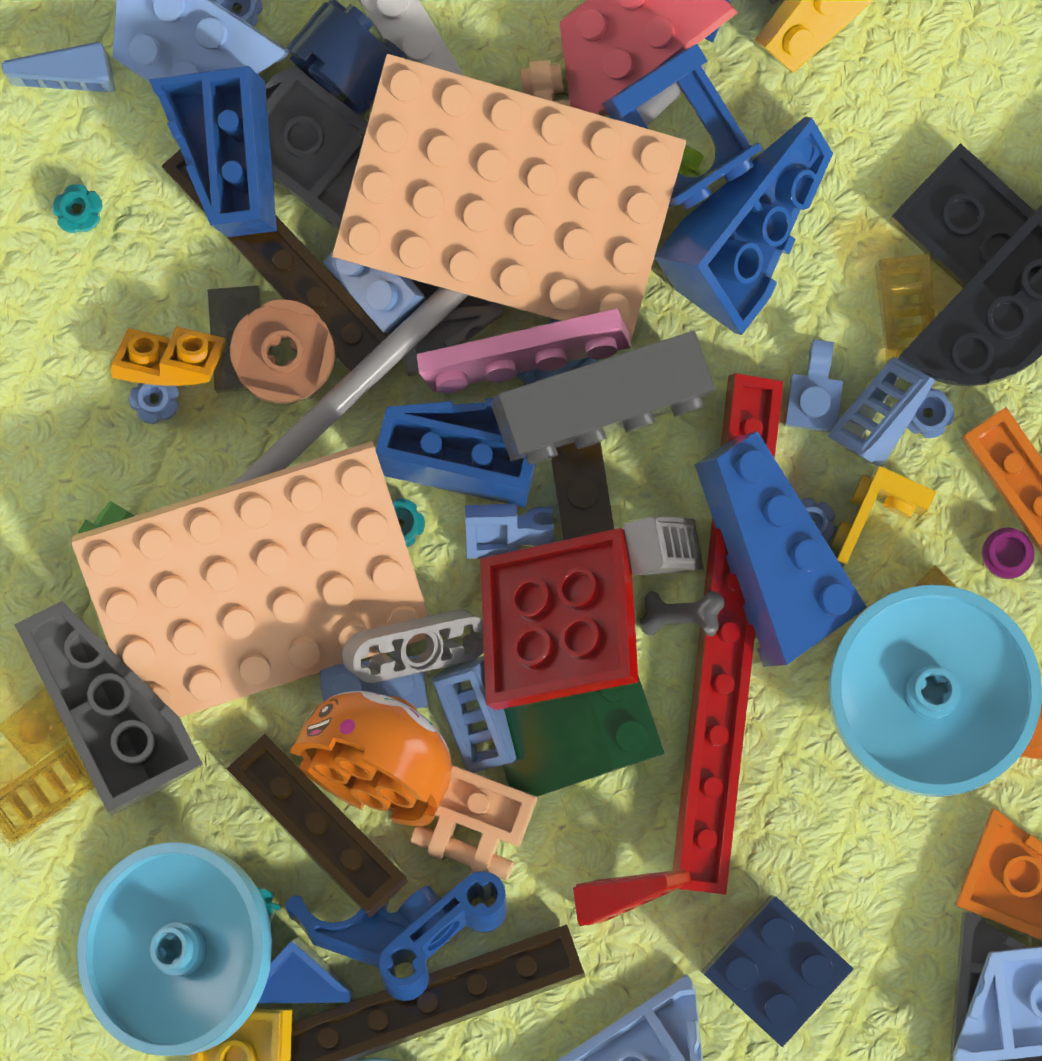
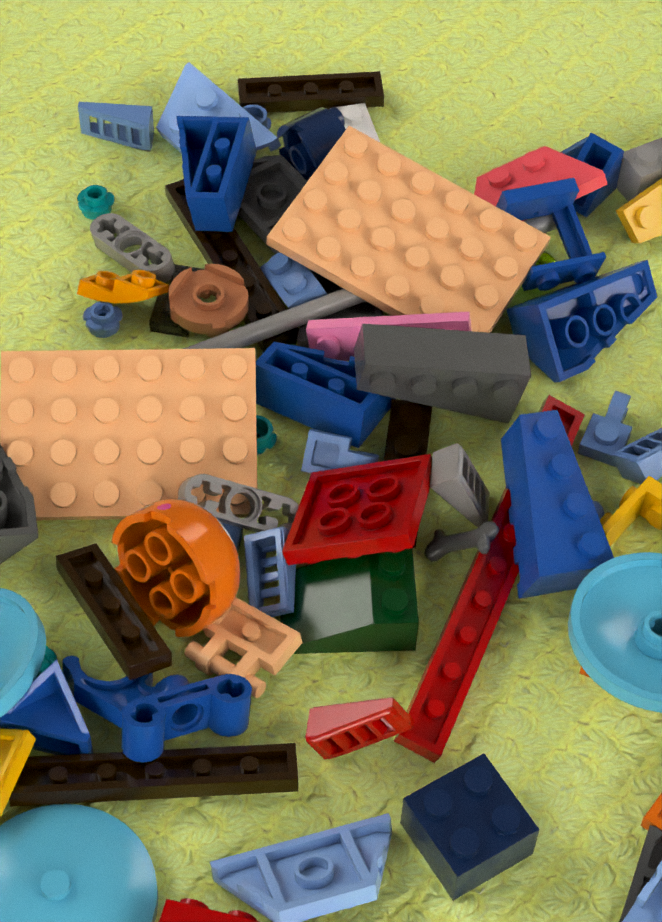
camera: 10 degrees right, 30 degrees down
(135, 278) = (127, 235): none -> light grey beam

